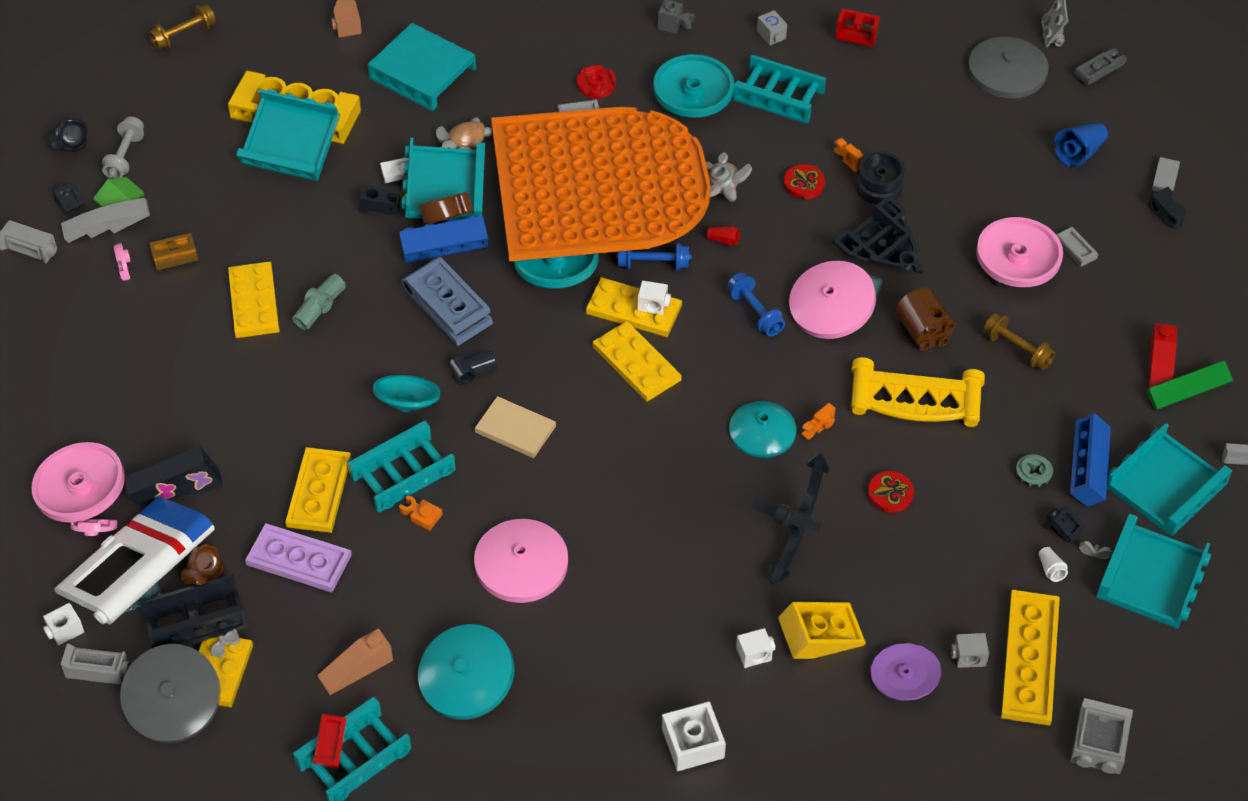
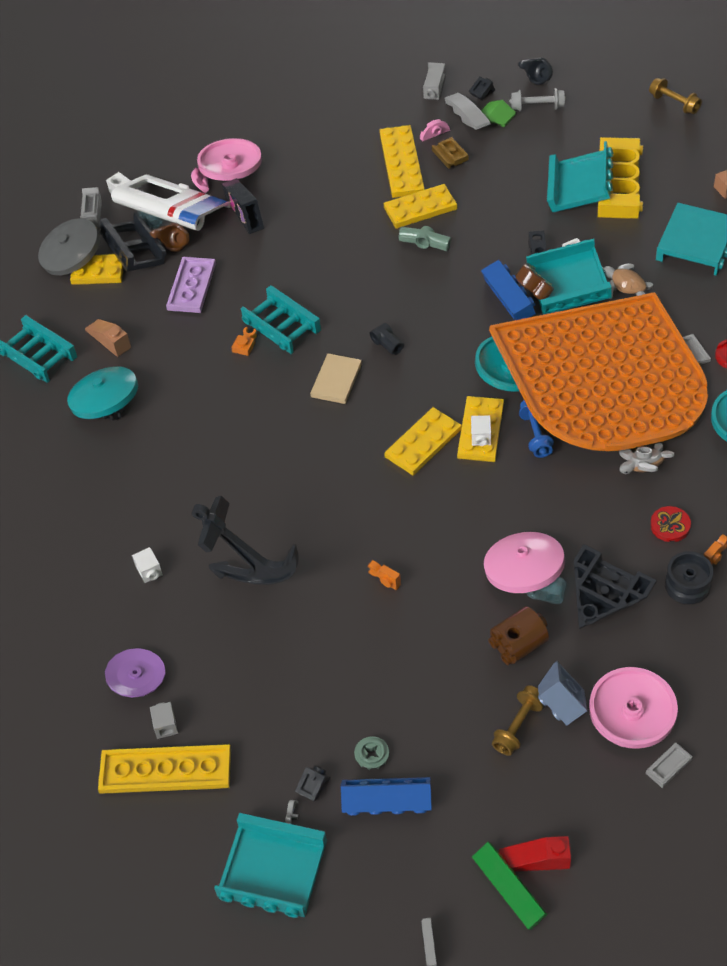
camera: 85 degrees right, 0 degrees up
(160, 304) = (401, 161): none -> yellow plate
(230, 638) = (105, 260): light grey piece -> none
(318, 490) = (251, 280): yellow plate -> none
(330, 741) = (34, 330): red tile -> none
(406, 392) = (346, 302): teal dish -> none
(448, 300) = (444, 307): sand blue hinge -> none
(521, 560) = (212, 408): bright pink dish -> none
(693, 736) = (59, 536): white brick -> none
(725, 234) = (580, 475): red cone -> none
(761, 437) = (377, 546): teal dish -> none
(770, 322) = (485, 521): blue piece -> none
(820, 628) = (171, 608): yellow slope -> none
(890, 491) = (324, 641): red tile -> none
(965, 393) = (448, 682): yellow piece -> none
(1002, 297) = (562, 694): none -> sand blue slope
(1053, 565) = (265, 777): white cone -> none
(1101, 736) = (85, 833): light grey window -> none
(1166, 481) = (384, 872): teal panel -> none

